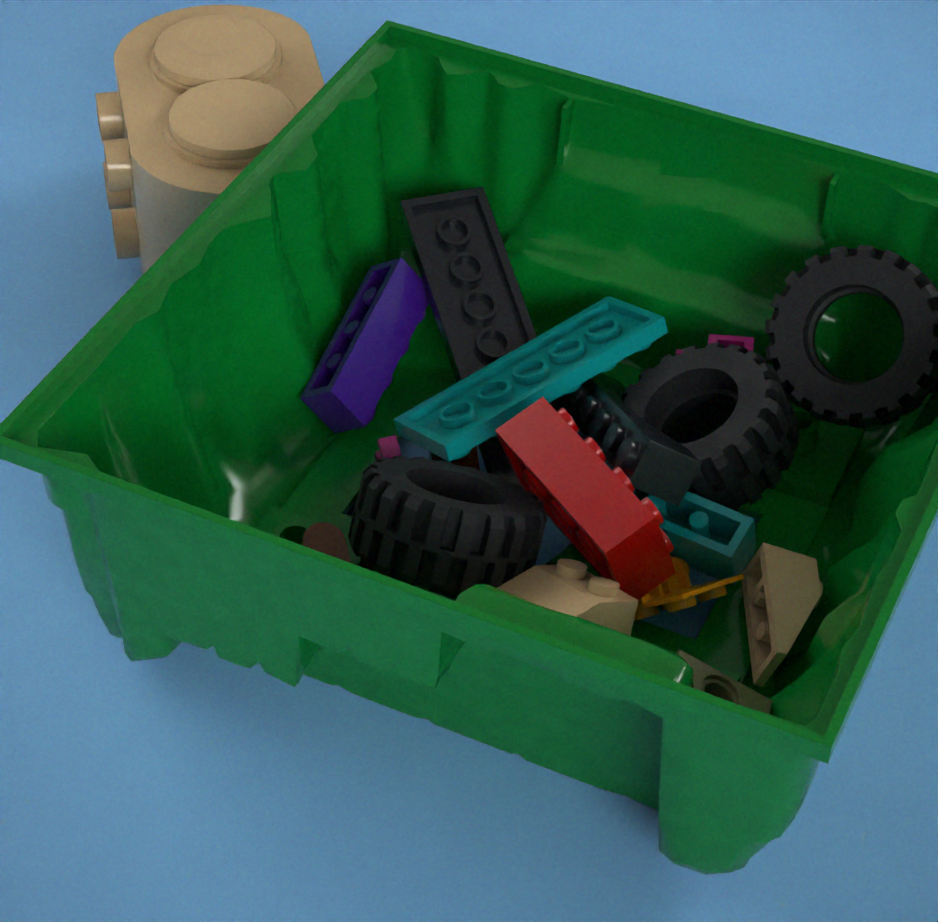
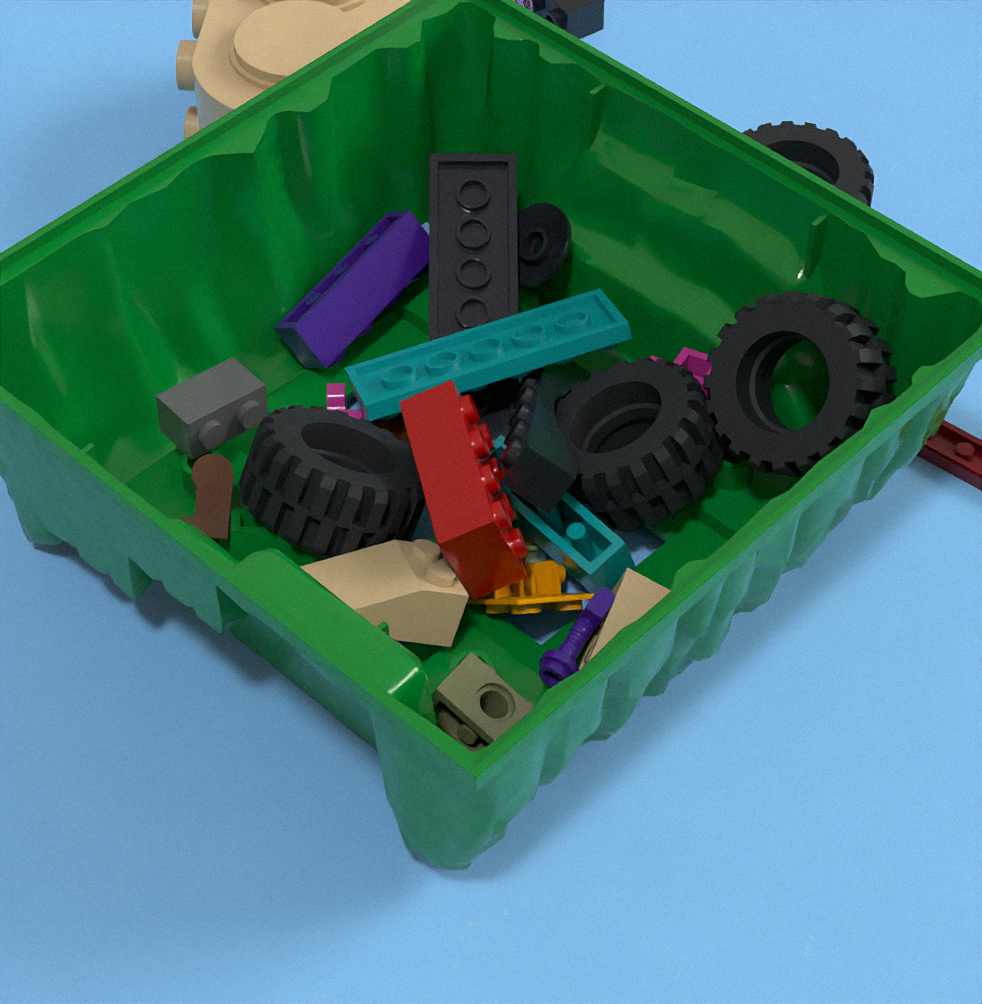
camera: 20 degrees right, 5 degrees up
(288, 482) = (212, 407): none -> dark grey brick
(539, 249) = (542, 242): none -> black dish
(742, 649) = (560, 663): none -> dark purple hinge

